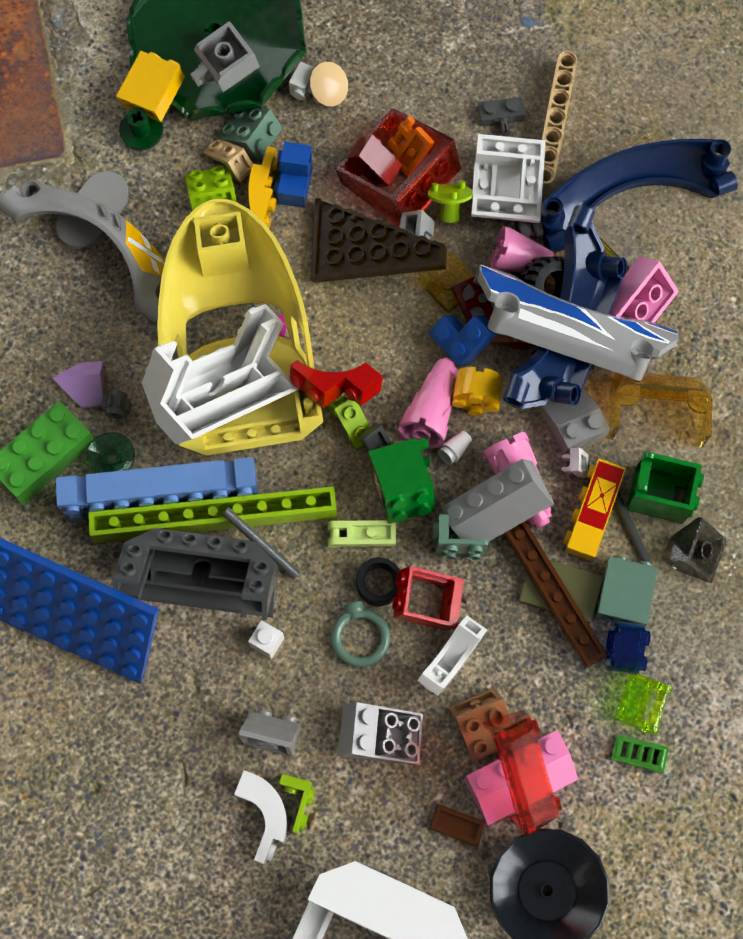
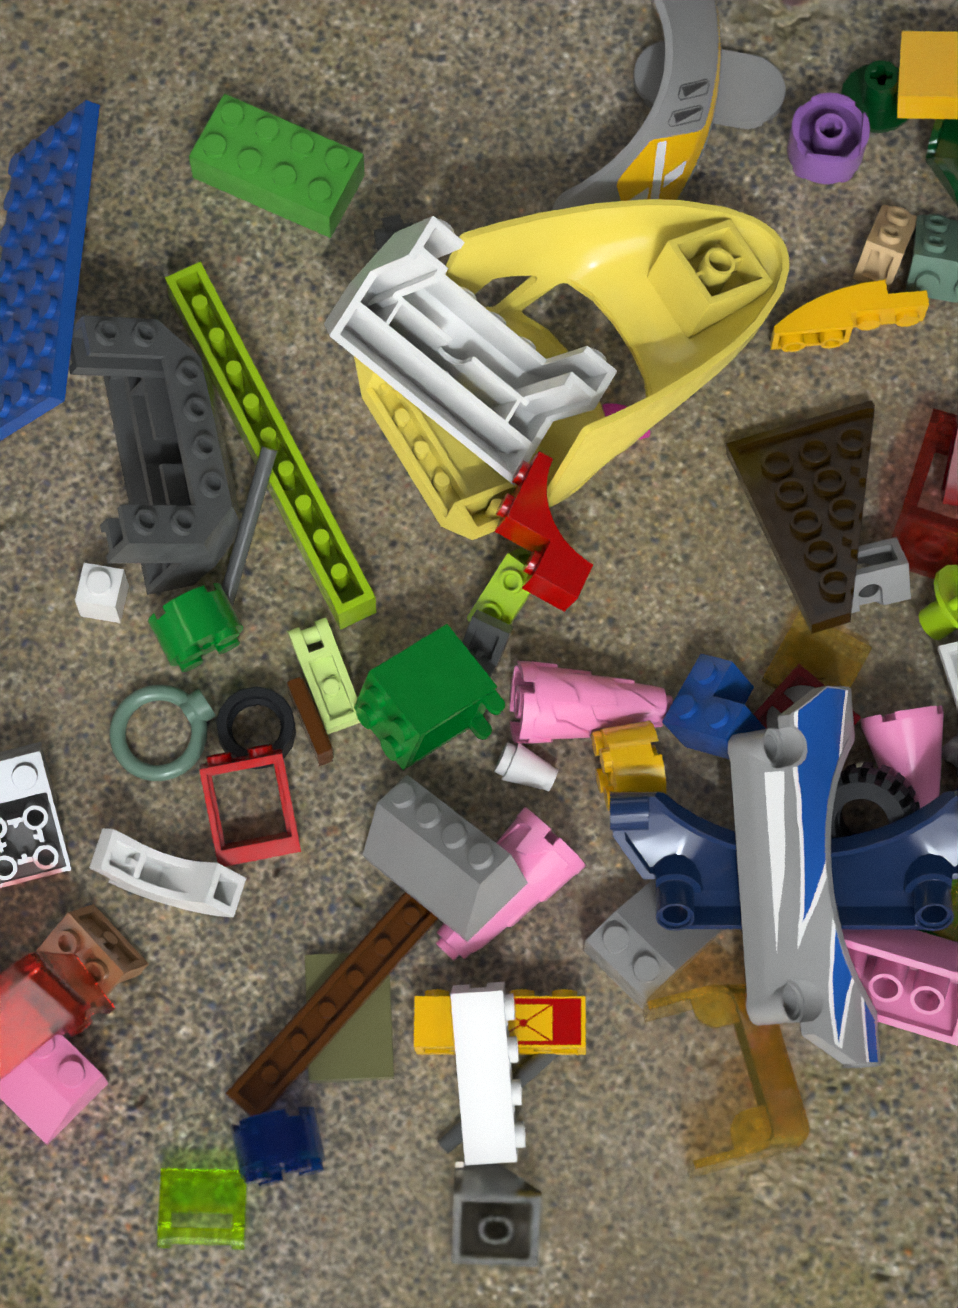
camera: 70 degrees right, 0 degrees up
(83, 383) = (415, 181): lavender slope -> none
(107, 445) = (312, 248): clear green dish -> none
(155, 486) = (279, 348): medium blue brick -> none
(156, 161) = (827, 139): none -> medium lavender brick
(210, 185) = (817, 238): lime bracket -> none
(295, 172) = (895, 355): blue brick -> none
(310, 592) = (196, 626): none -> green brick
(387, 550) = (310, 721): none -> reddish brown tile
(450, 548) = (352, 796): sand green bracket -> none
(578, 462) = (574, 970): white tile -> none
(624, 522) = (485, 1073): none -> white brick
(626, 591) = (379, 1121): sand green brick -> none
(651, 747) = (117, 1264): bright green slope -> none
(655, 487) = (578, 1113): green container -> none

